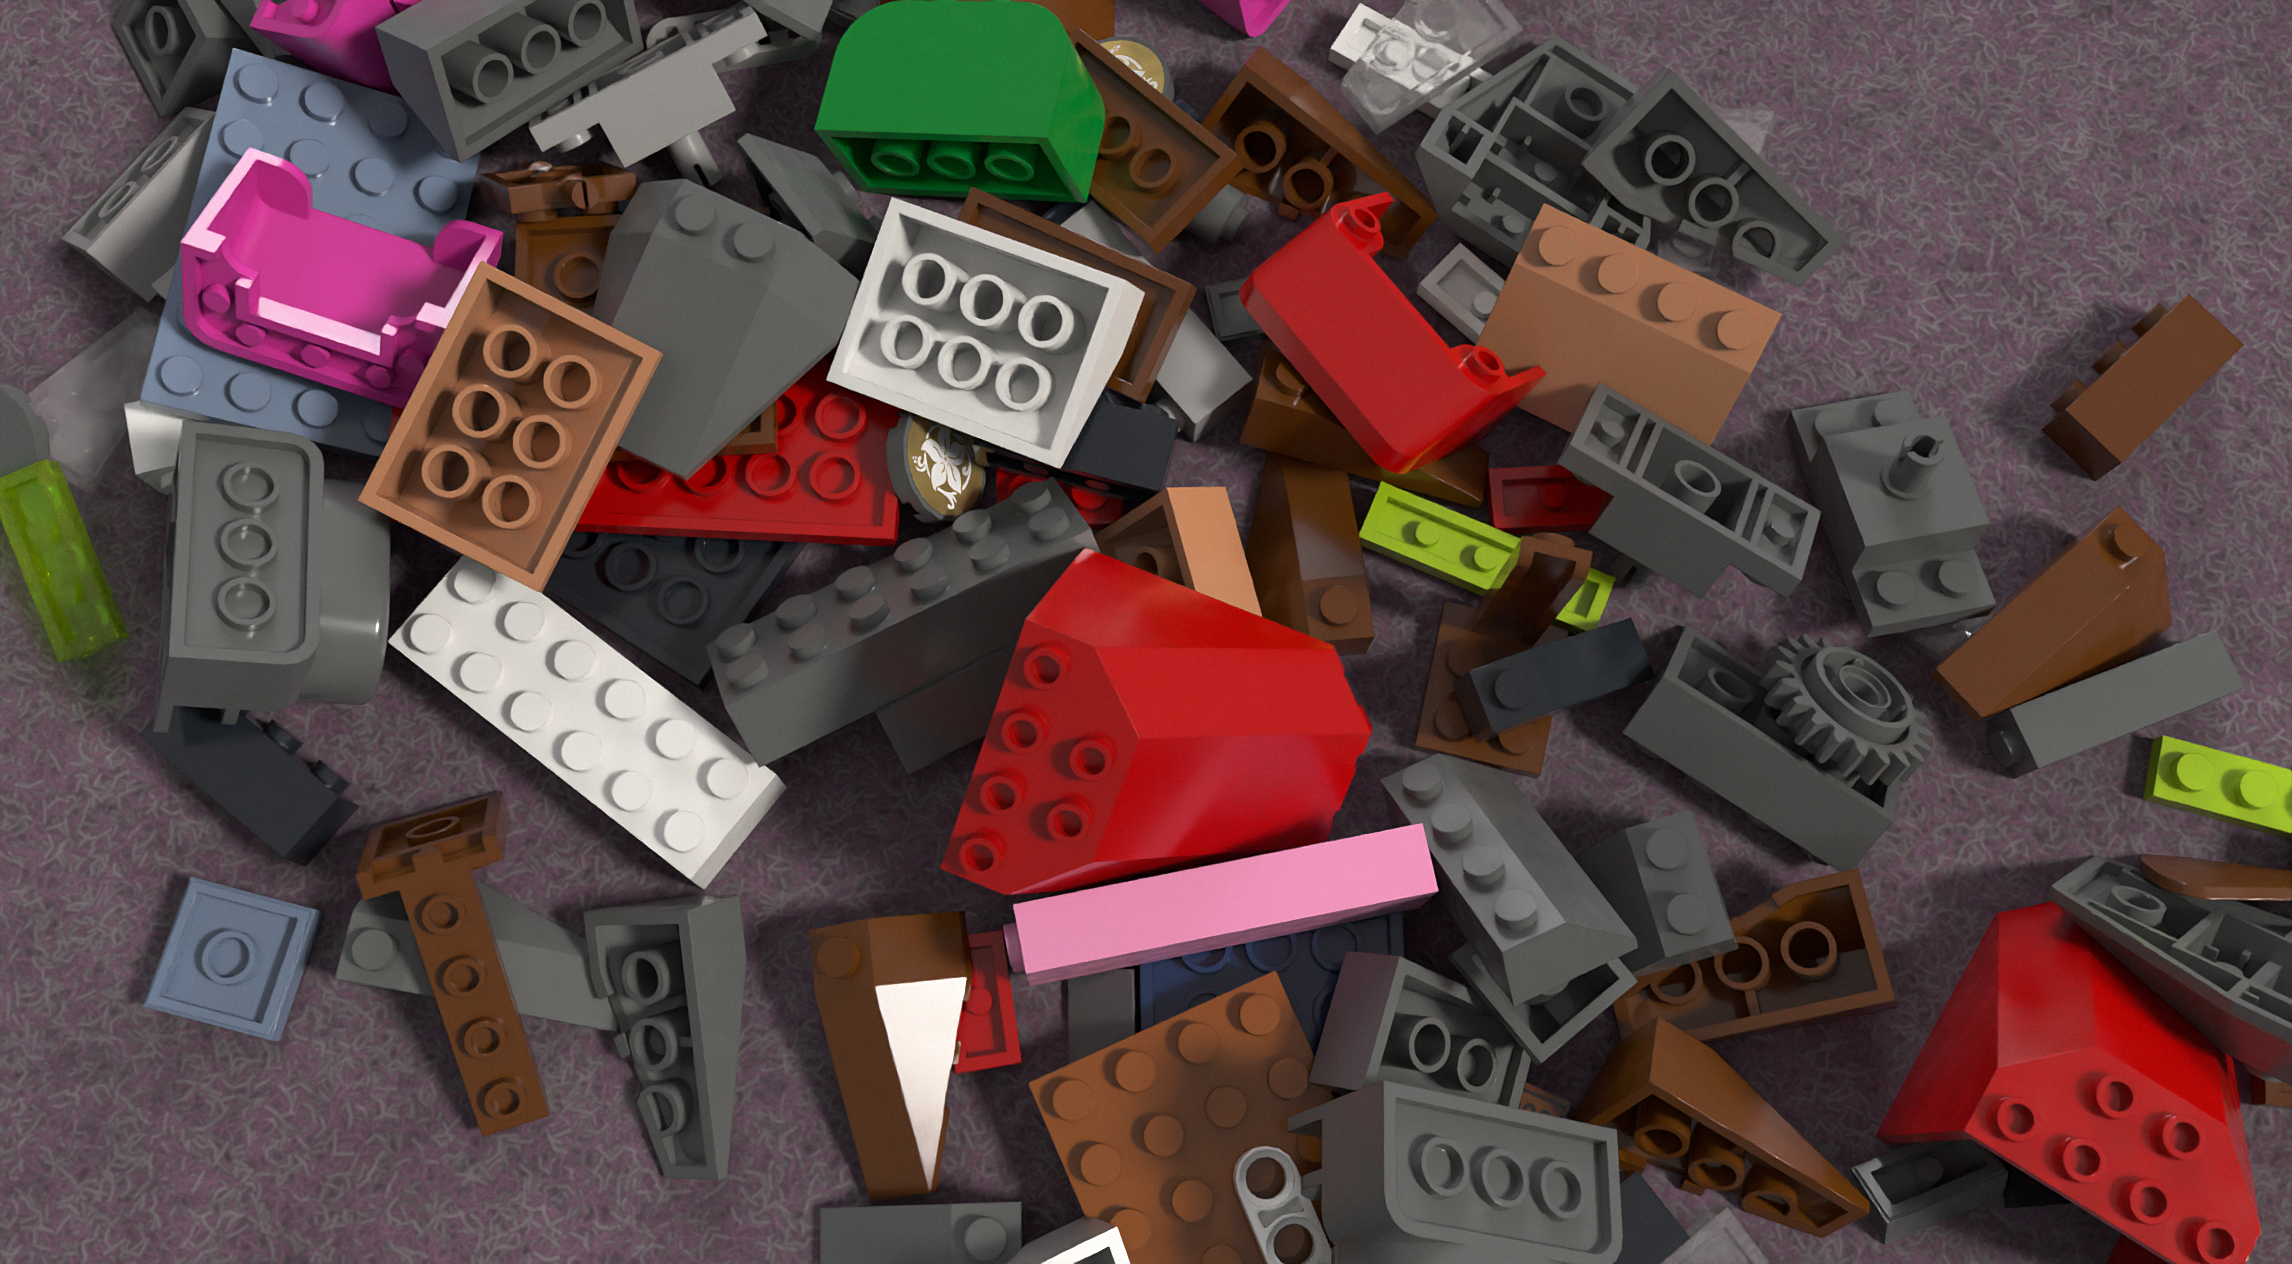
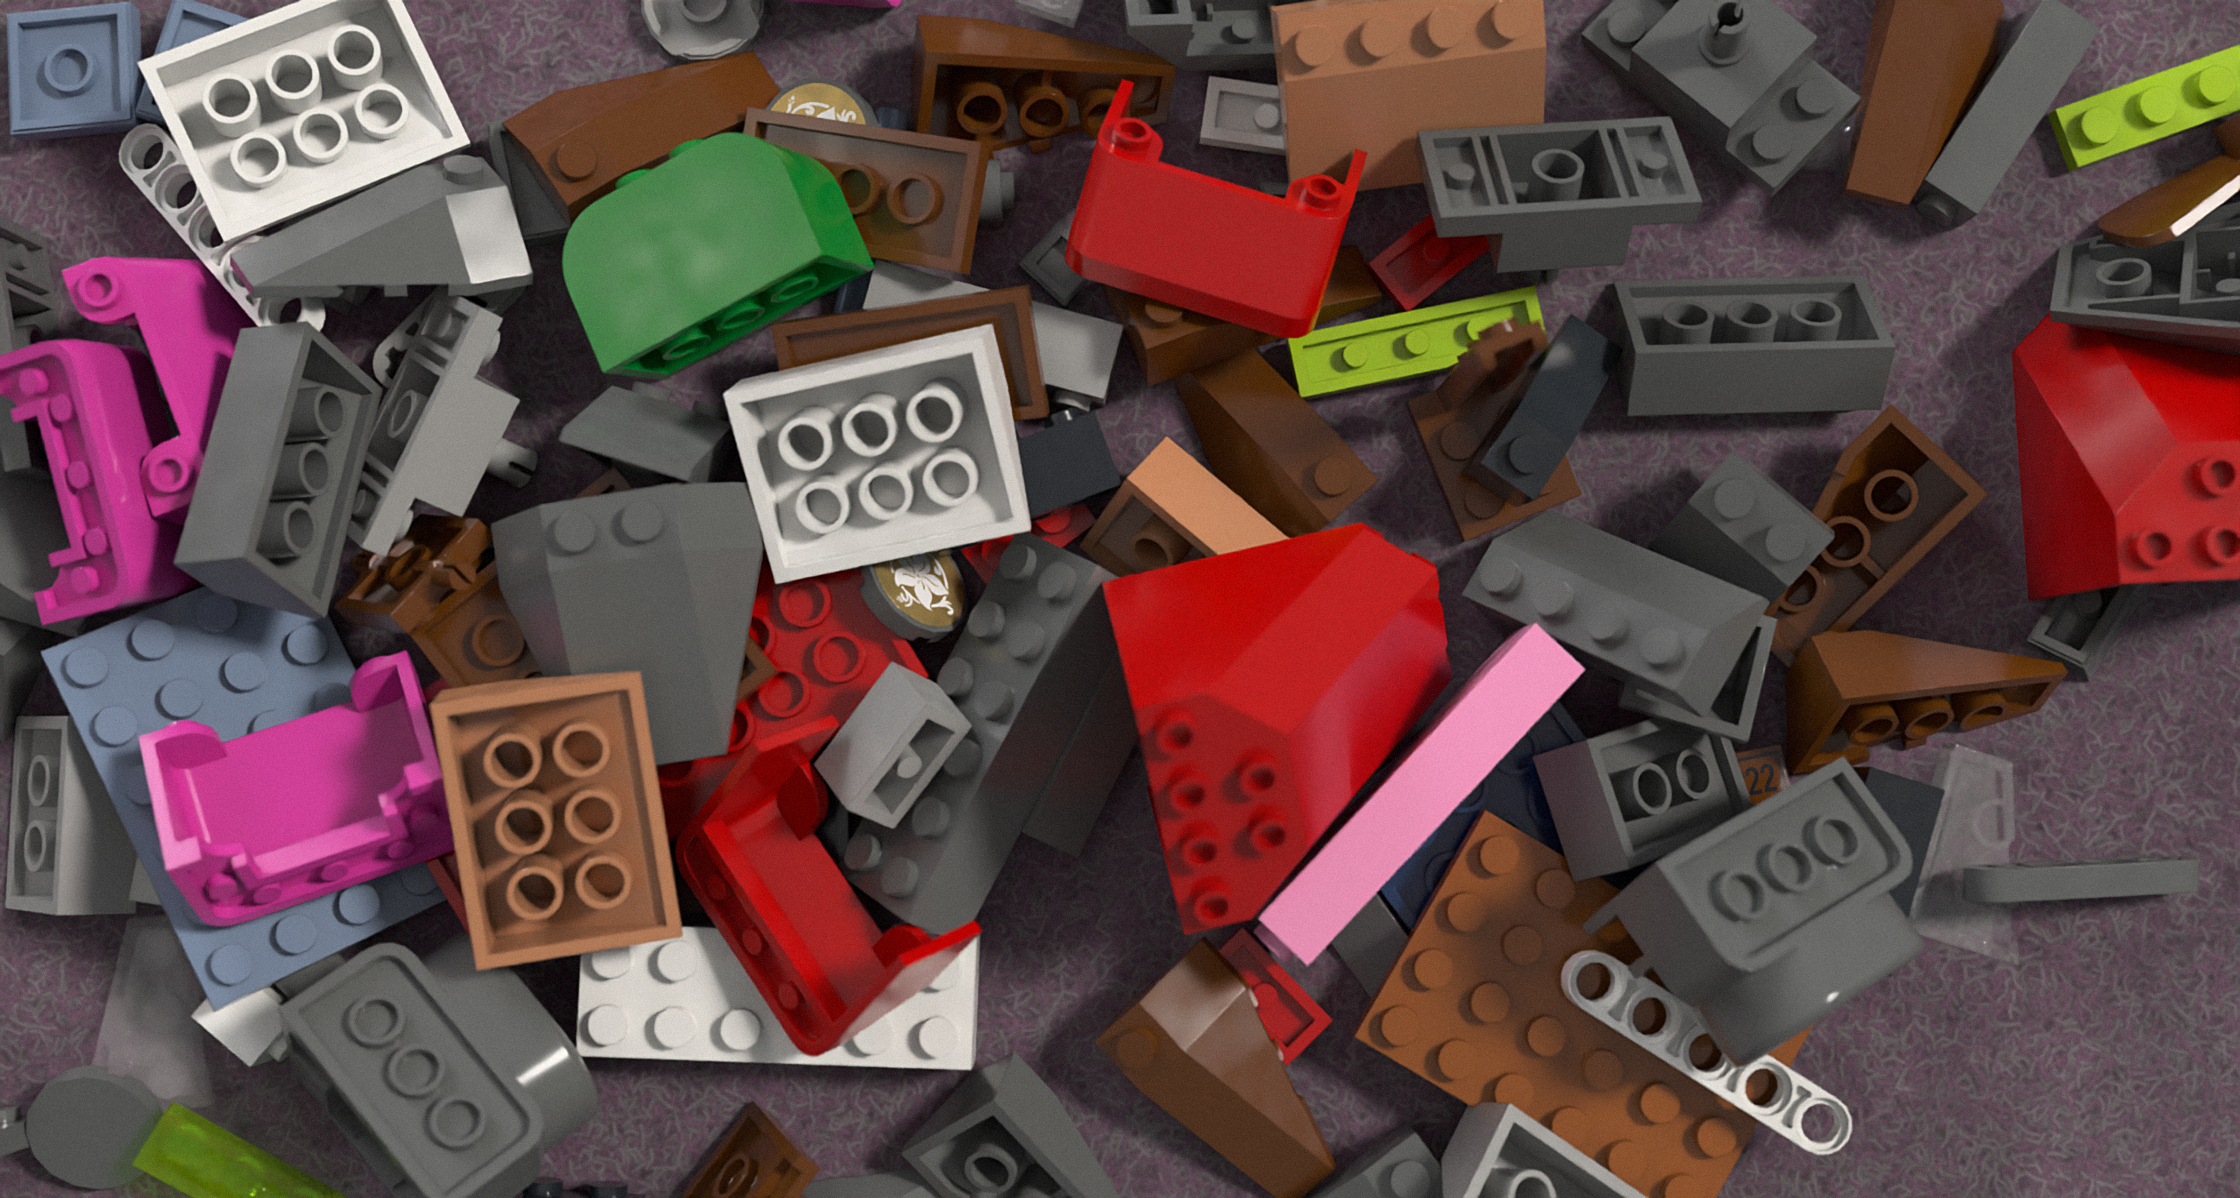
camera: 35 degrees left, 10 degrees up
(646, 625) = (790, 907): none -> red windscreen
(821, 565) = (892, 745): none -> light grey brick
(1846, 710) = (1795, 273): dark grey gear -> none

